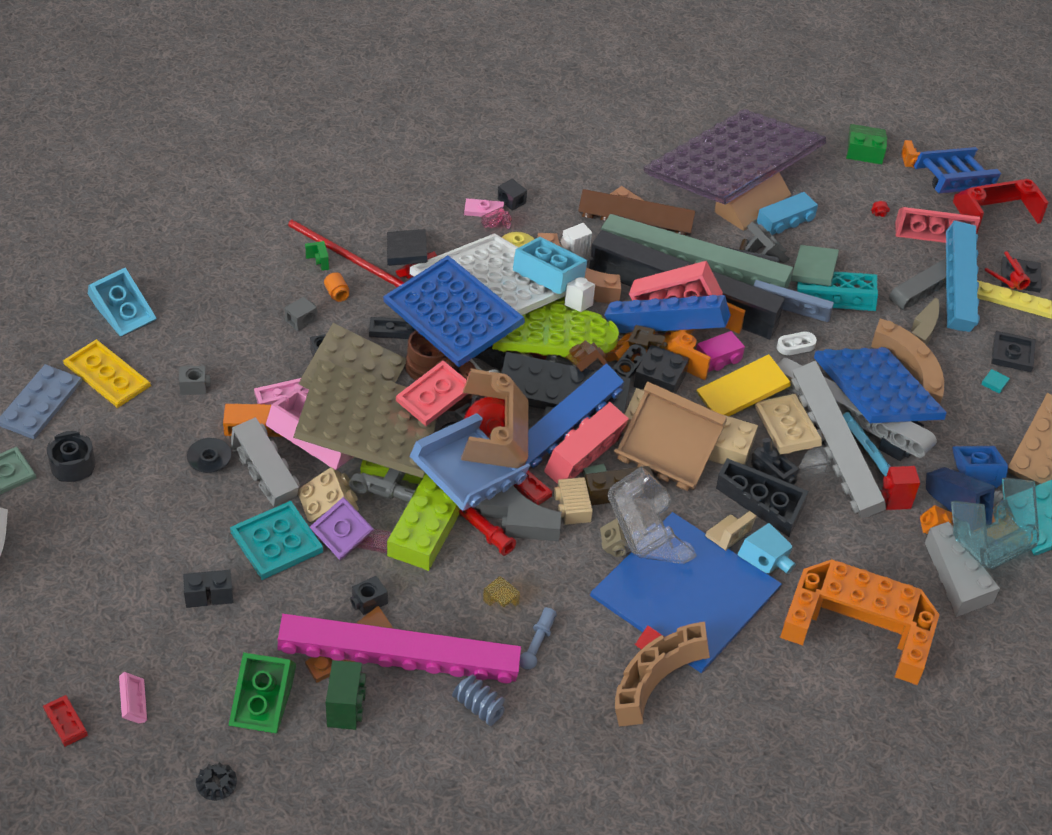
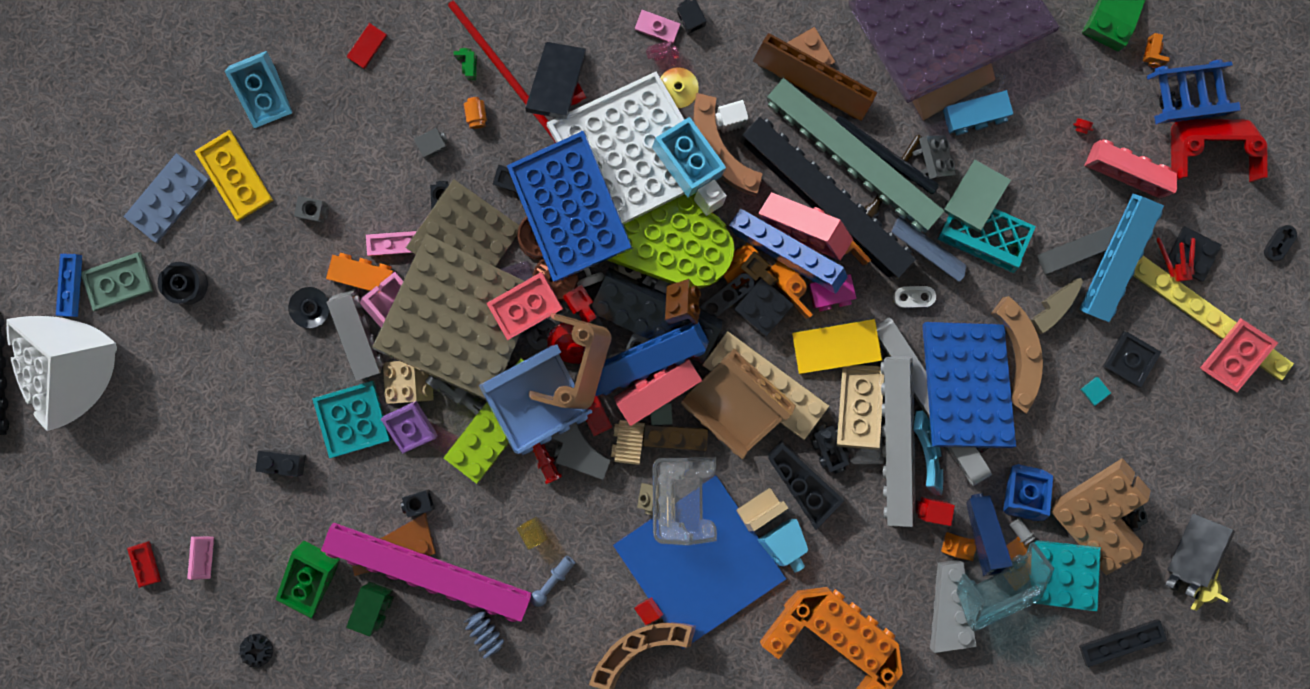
camera: 20 degrees right, 40 degrees up
(219, 262) = (366, 46): none -> red tile

